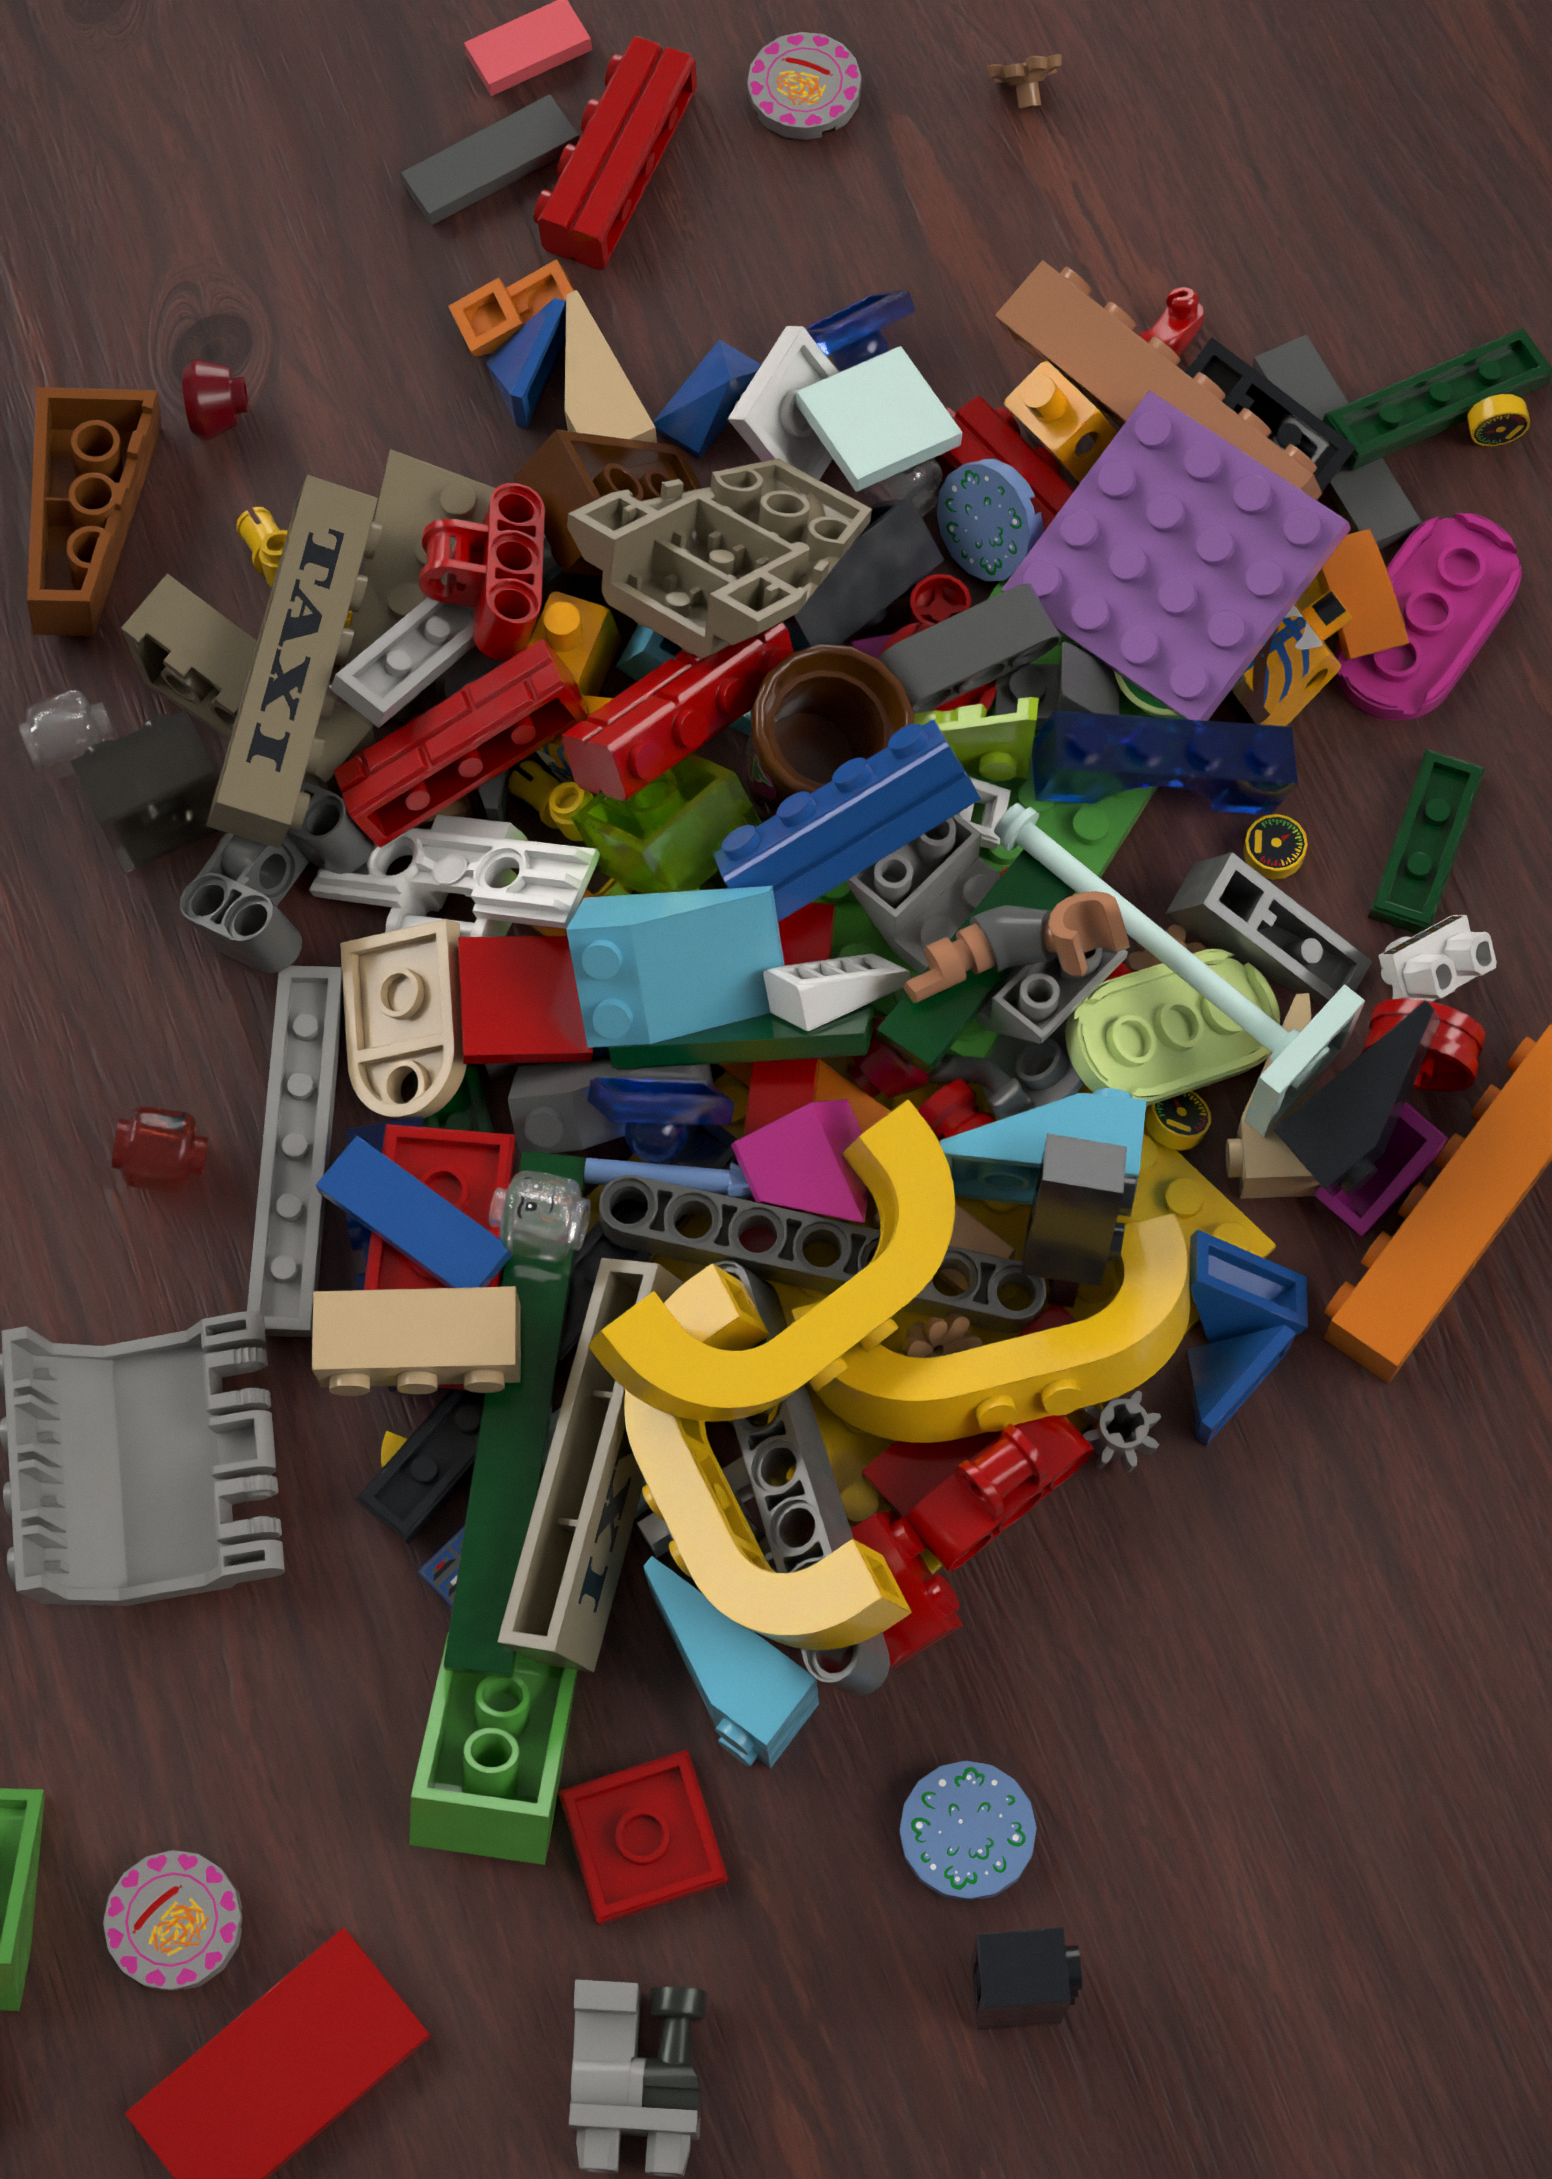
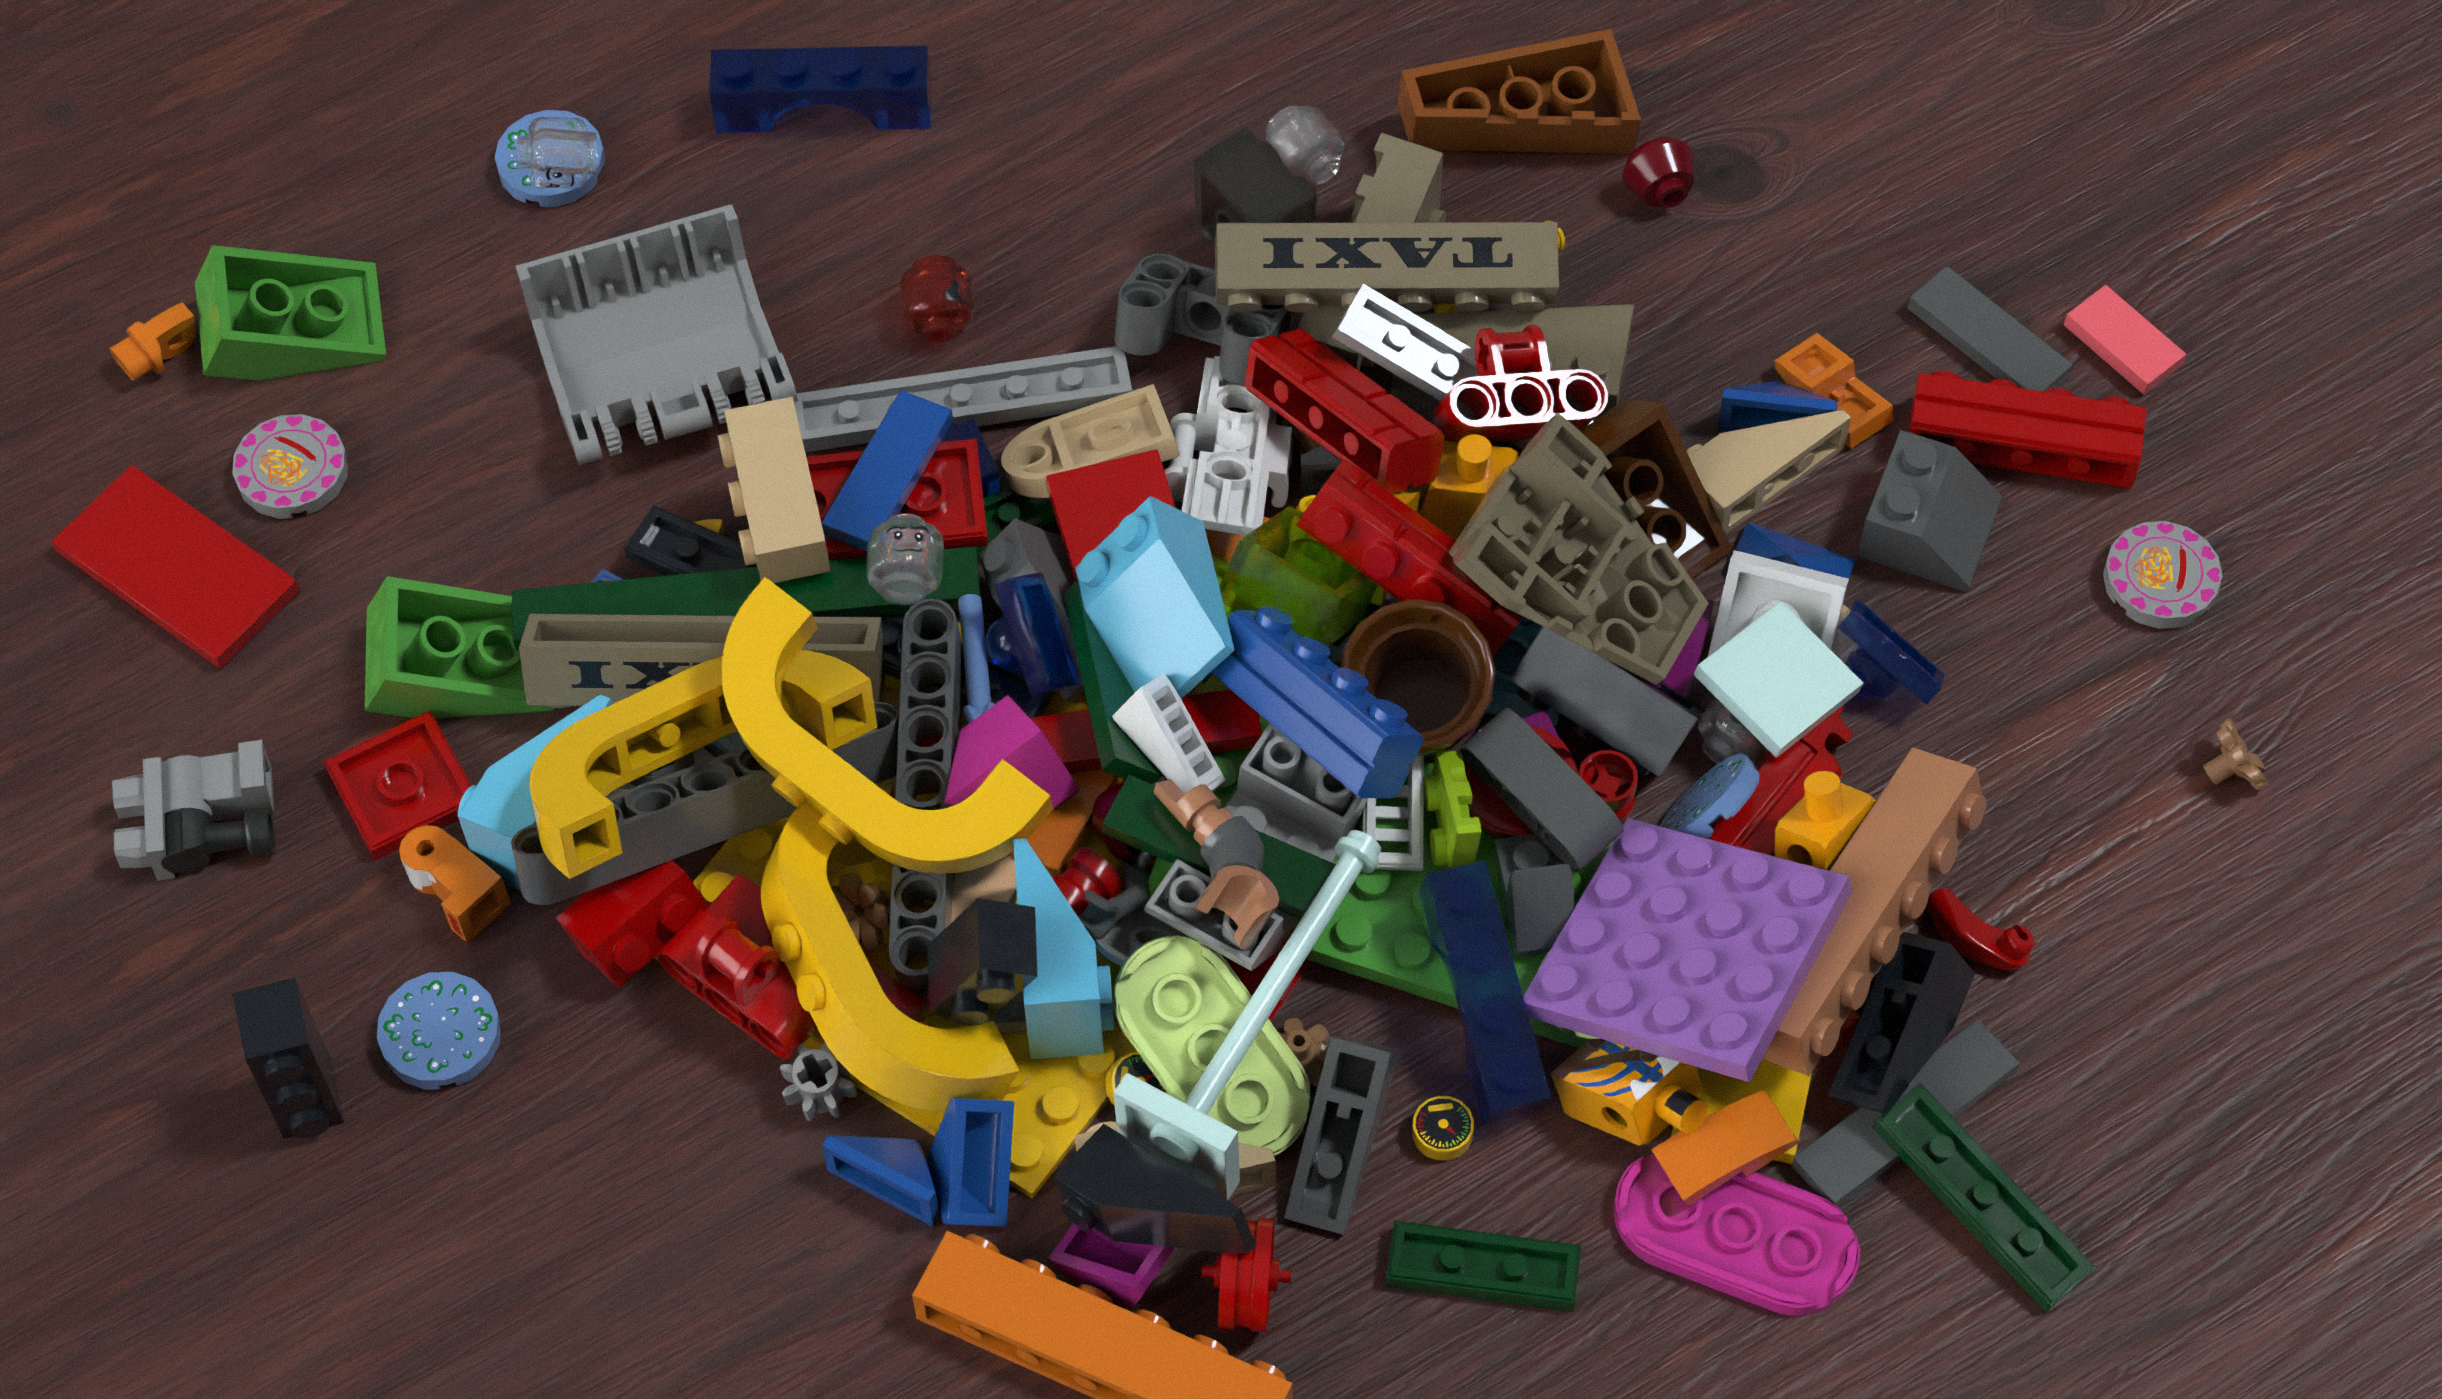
camera: 75 degrees right, 10 degrees down
(687, 263) = (1930, 513): none -> dark grey slope
(783, 1786) = (465, 884): none -> orange leg
(1437, 960) = (1337, 1271): white hips -> none
(1498, 420) = (1973, 1255): tile -> none

